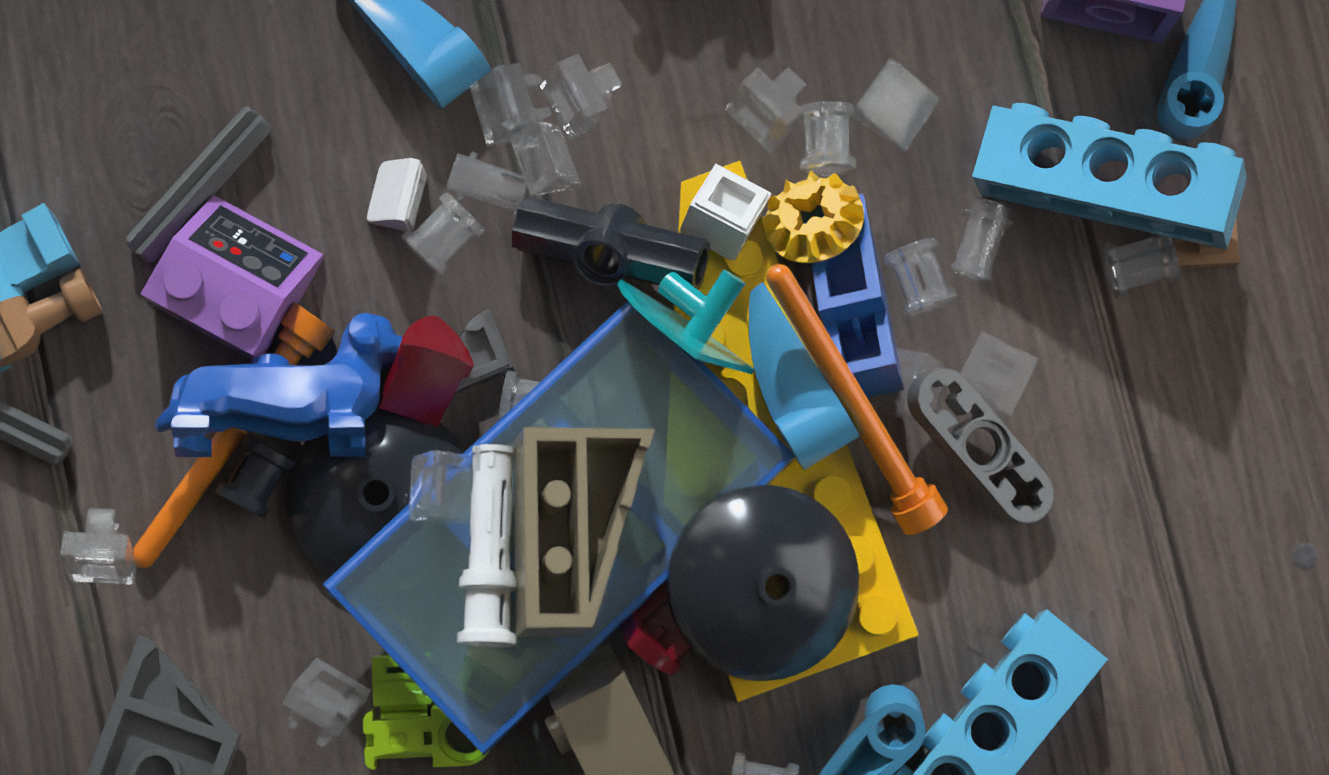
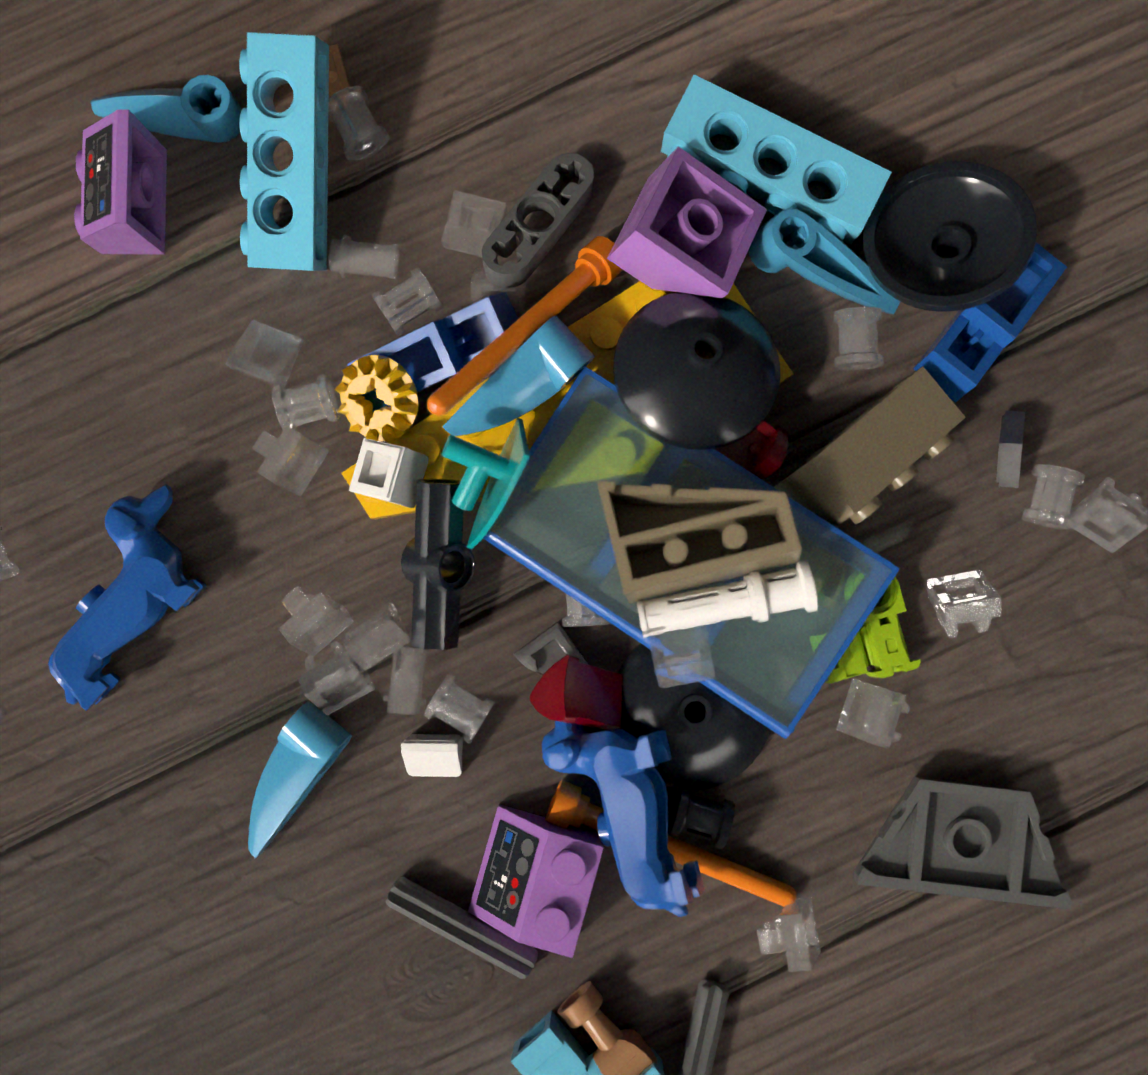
camera: 95 degrees left, 5 degrees up
(927, 611) = (687, 229): none -> medium lavender slope

